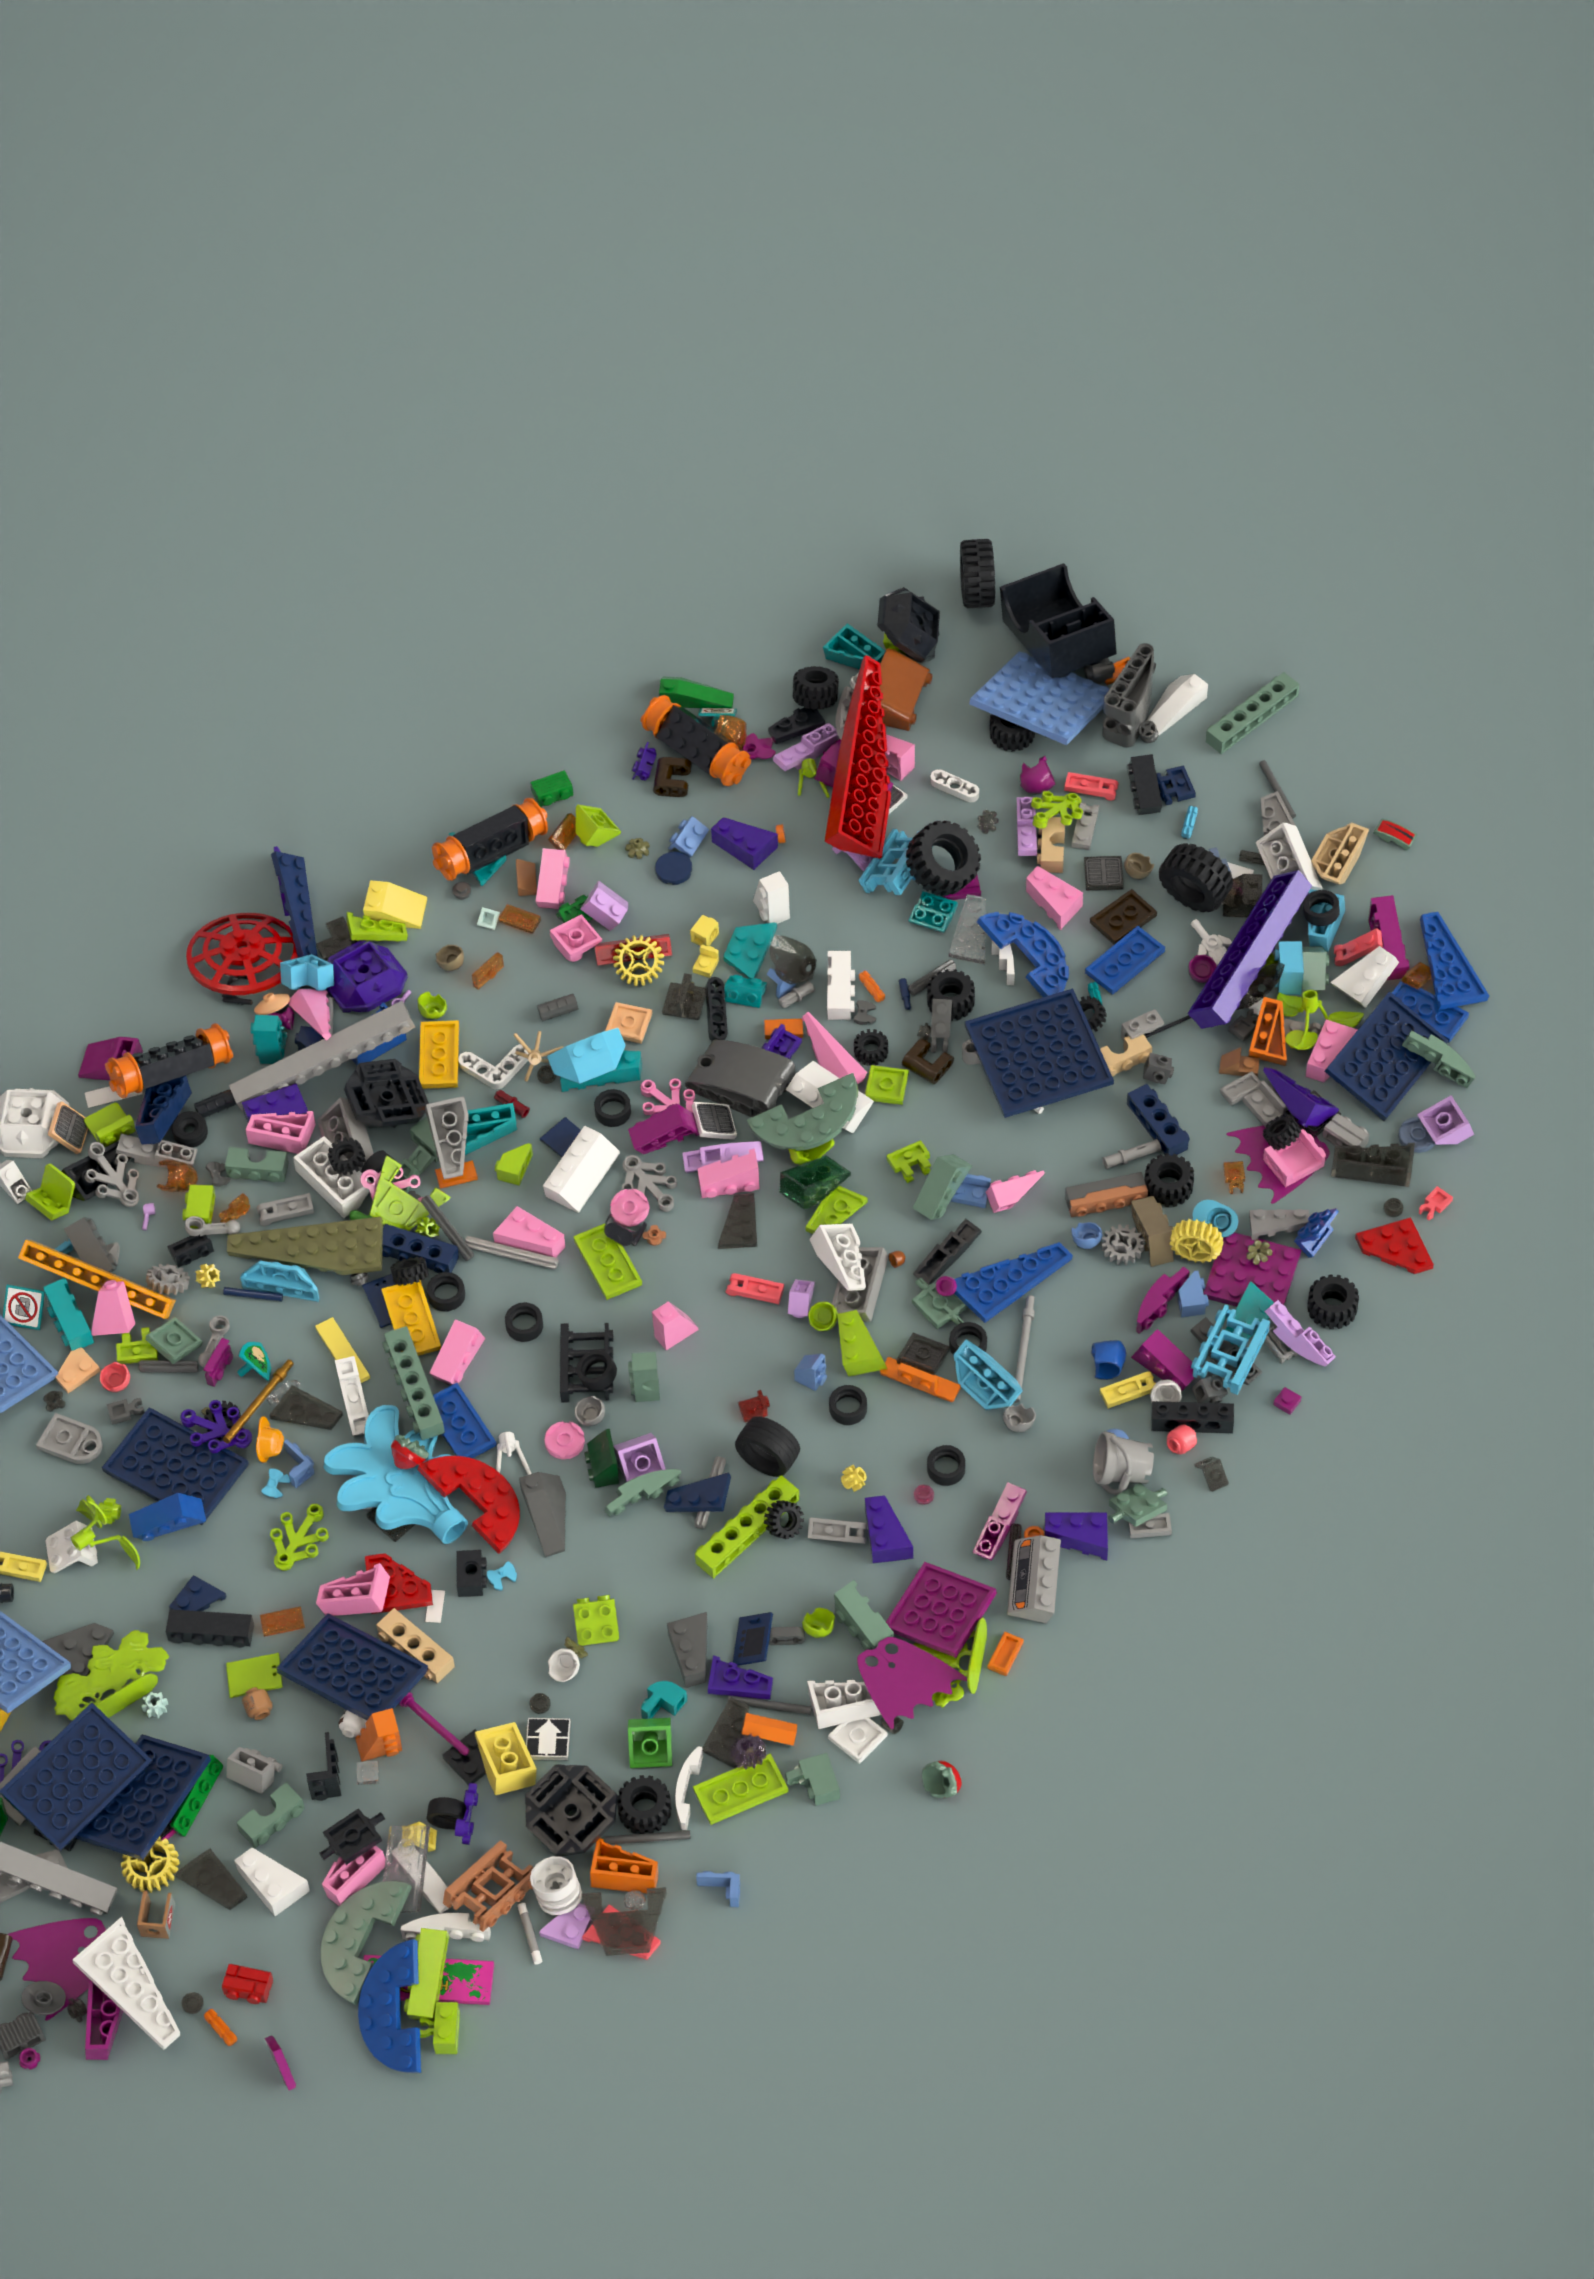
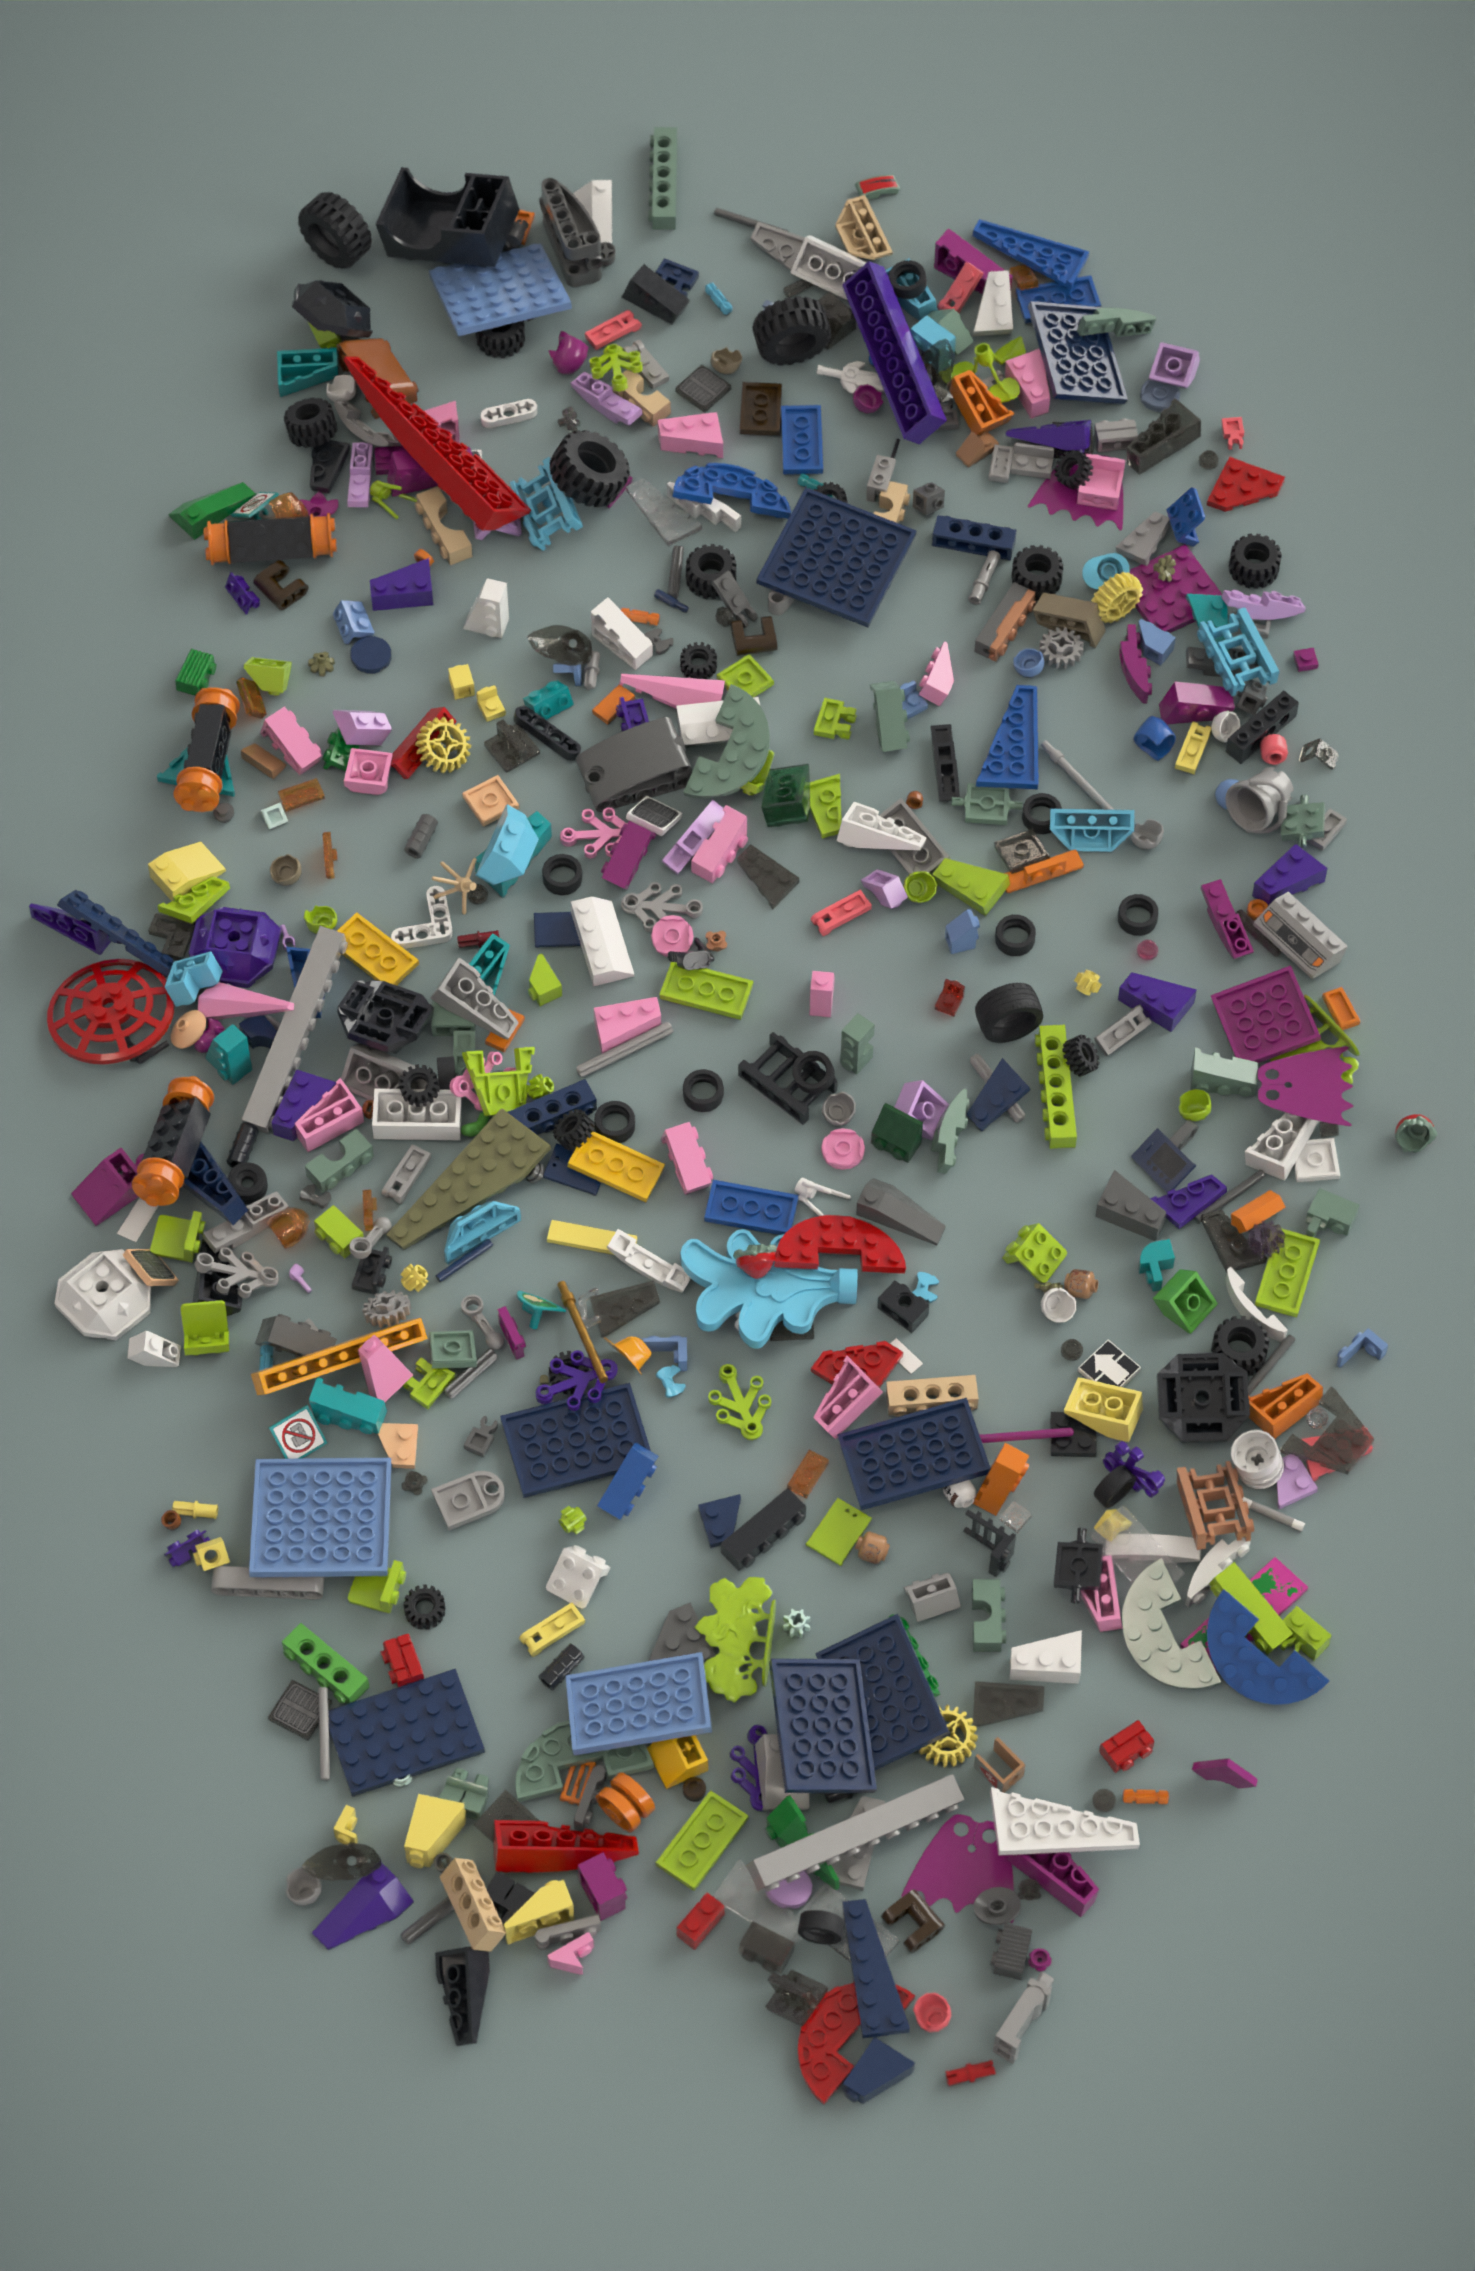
camera: 50 degrees left, 5 degrees up
(86, 1535) = (592, 1549): lime plant -> none
(115, 1377) = (443, 1418): coral hair -> none
(401, 1341) = (680, 1197): sand green brick -> none
(447, 1227) = (557, 1072): dark grey axle -> none
(597, 1665) = (1081, 1283): none -> medium nougat head
(749, 948) = (509, 666): teal wing -> none
(811, 840) = (453, 543): none -> tan arch
(933, 912) = (614, 522): teal slope -> none
(946, 1286) = (983, 785): magenta tile -> none
(1234, 1175) = (1074, 529): clear orange plate -> none

